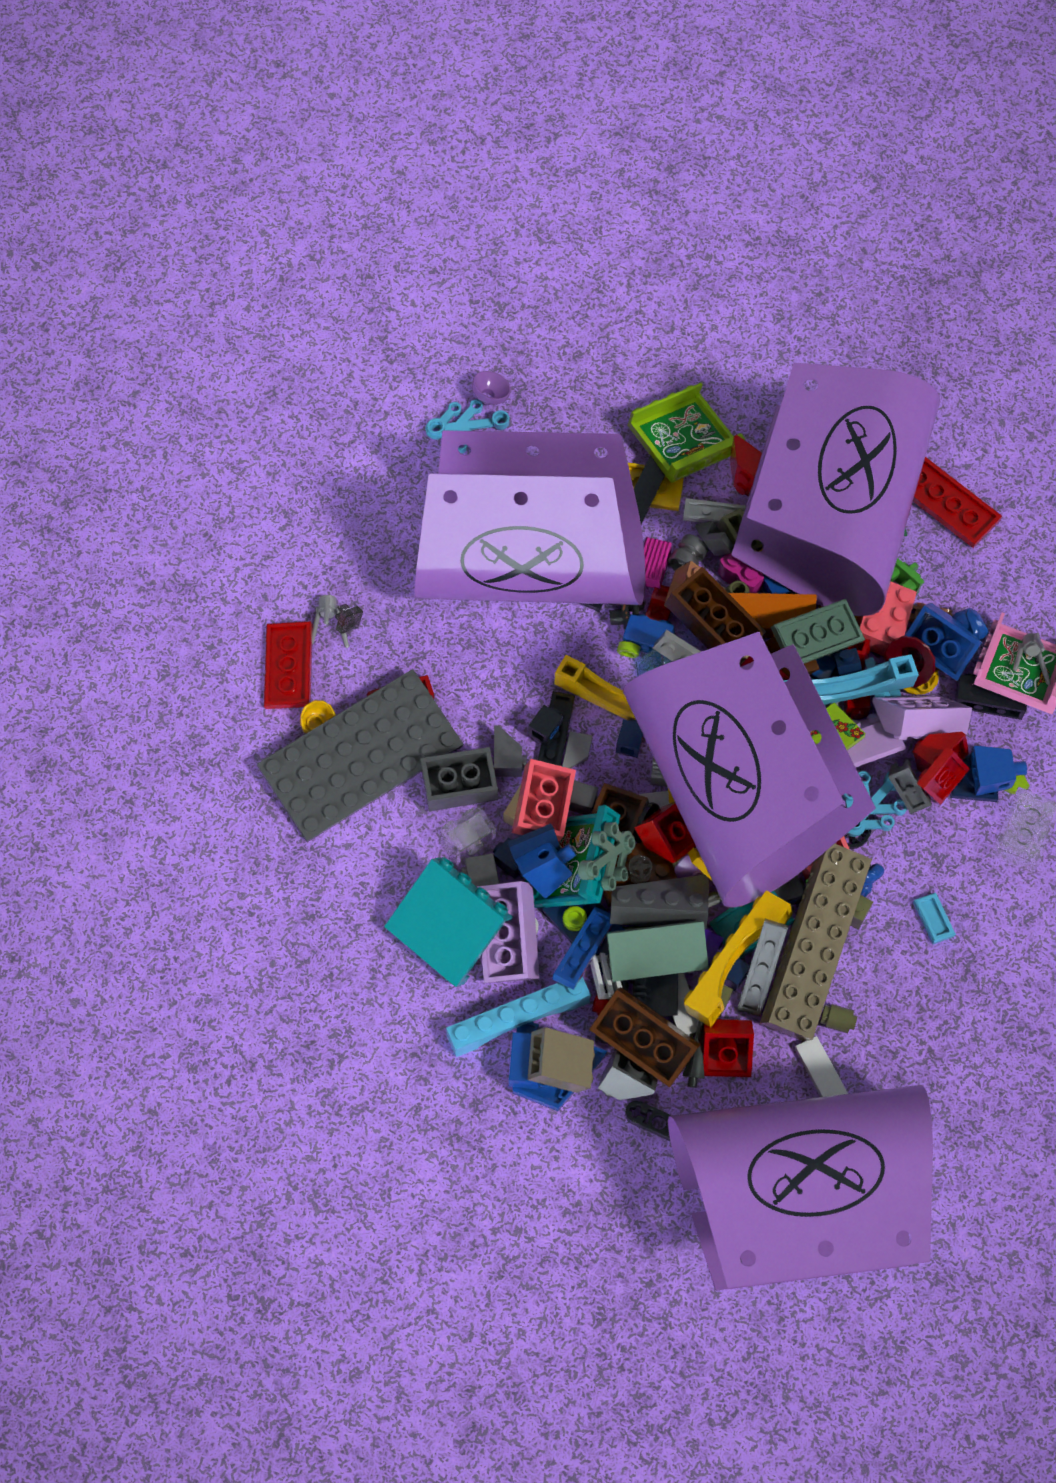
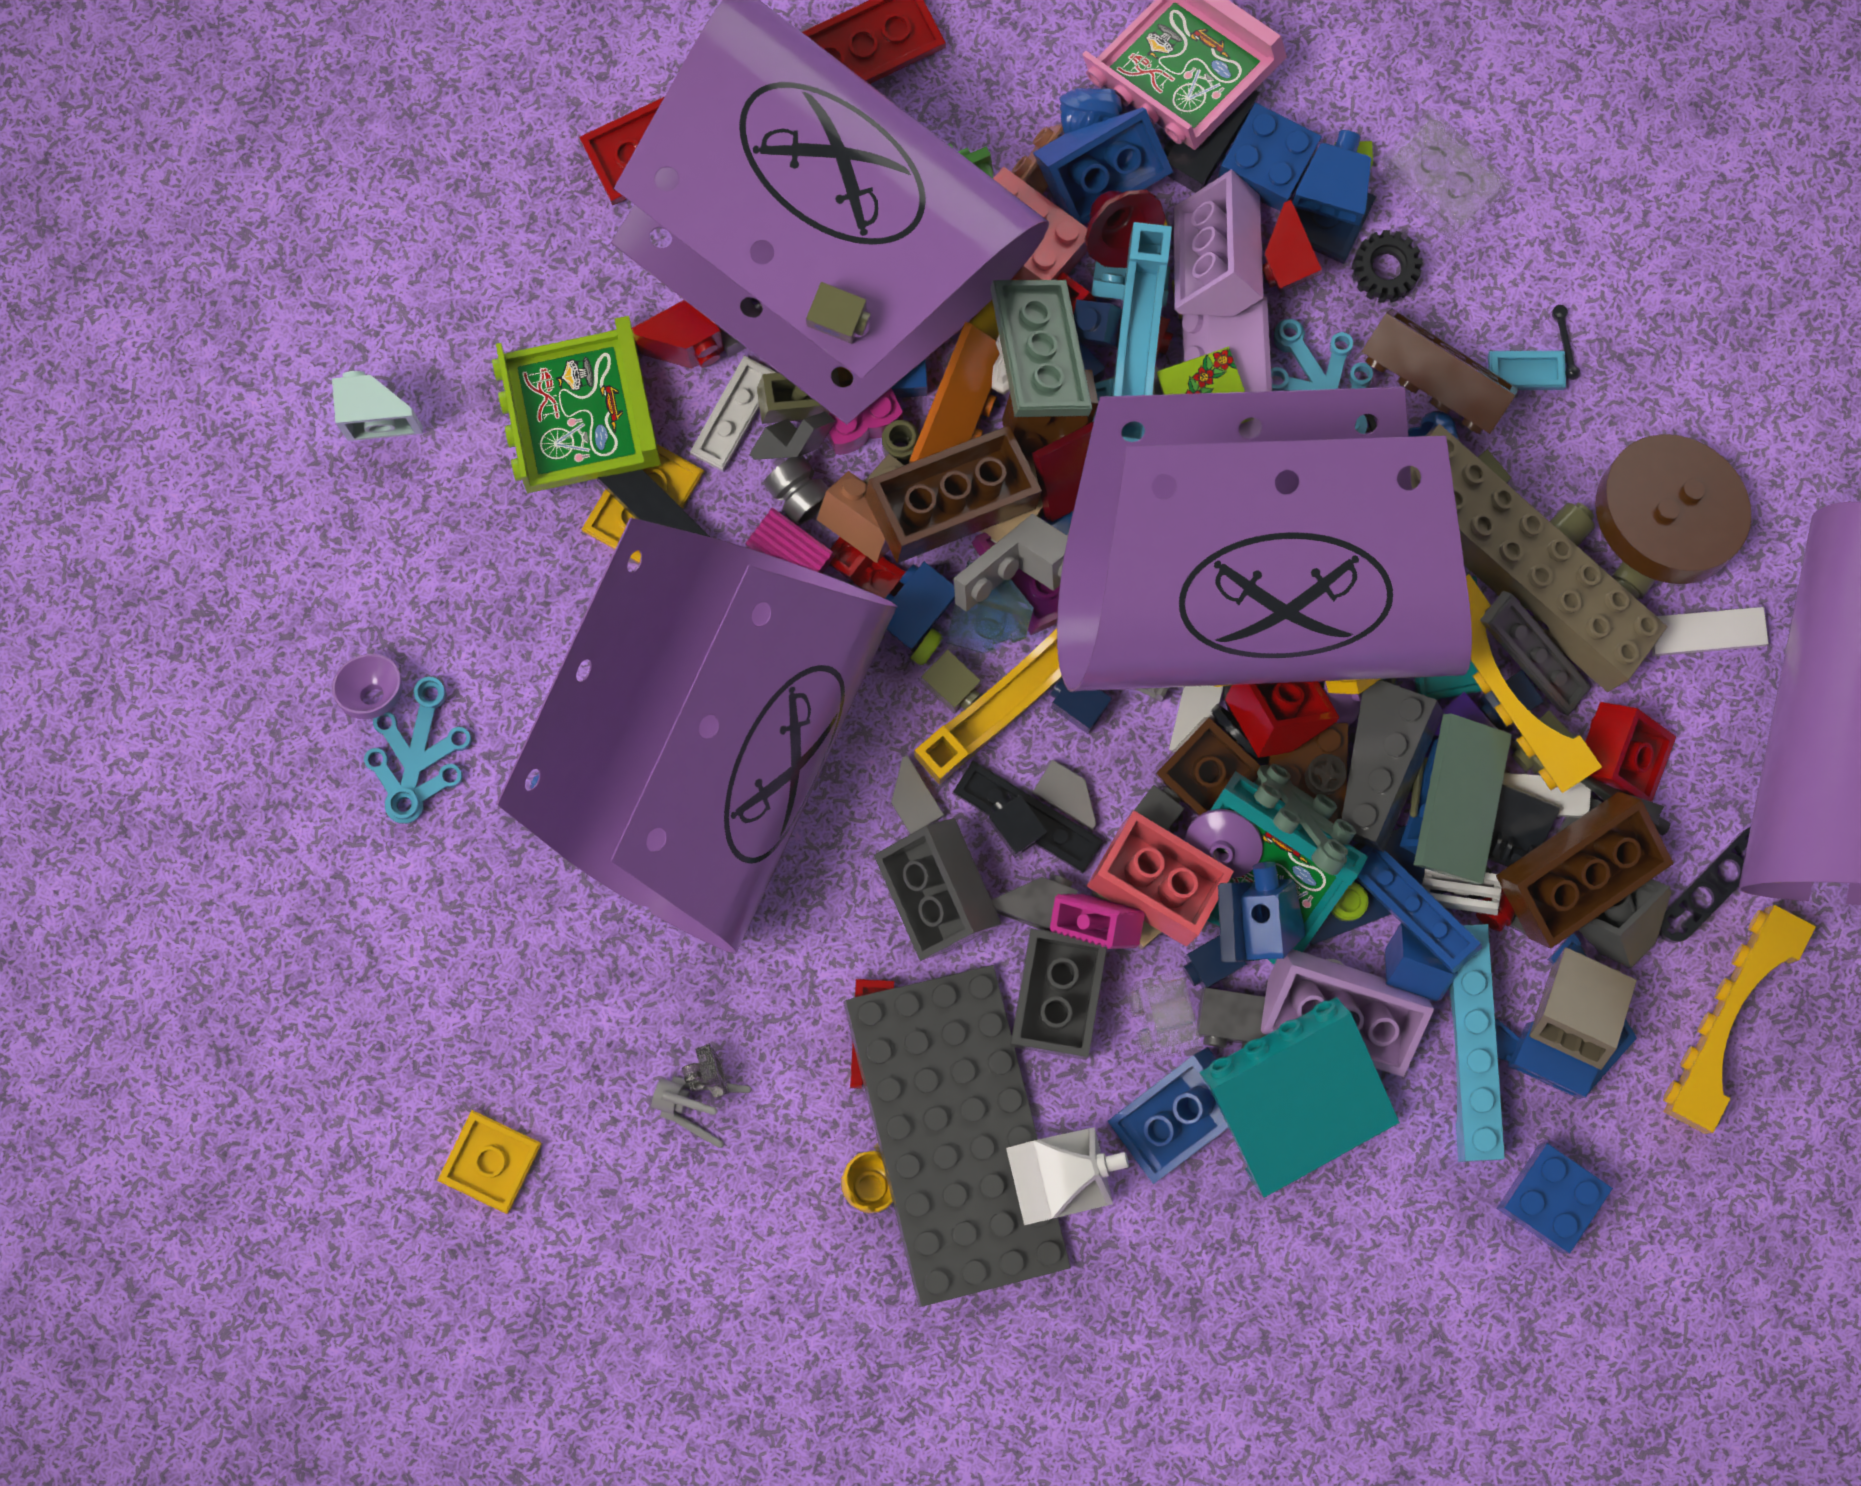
camera: 70 degrees left, 15 degrees up
(260, 534) = (489, 1162): none -> yellow tile
(288, 665) = (750, 1196): red tile -> none
(356, 811) = (1062, 1175): none -> white piece
(406, 861) = (1171, 1119): none -> blue slope
(443, 1091) = (1554, 1198): none -> blue brick
(493, 694) = (937, 889): none -> dark grey brick
(506, 777) = (1097, 921): none -> dark pink brick
(540, 673) = (913, 799): none -> light grey tile
(540, 1156) = (1699, 1092): none -> yellow arch
(545, 964) = (1414, 967): none -> blue slope
(578, 829) = (1229, 831): none -> medium lavender dish
(614, 667) = (952, 682): none -> olive brick
(638, 336) = (370, 410): none -> light aqua slope
(775, 487) = (838, 313): none -> olive brick
(850, 970) = (1574, 522): none -> olive brick
(886, 1021) = (1673, 509): none -> reddish brown brick
(906, 785) = (1325, 319): dark grey hinge -> none
(907, 860) = (1439, 371): none -> reddish brown brick
(943, 775) = (1336, 272): red plate -> none
(963, 806) = (1394, 246): none -> black tyre
(978, 926) = (1559, 313): none -> black hinge
(992, 727) = (1271, 155): none -> blue brick
(1032, 646) = (1158, 34): light grey plant -> none

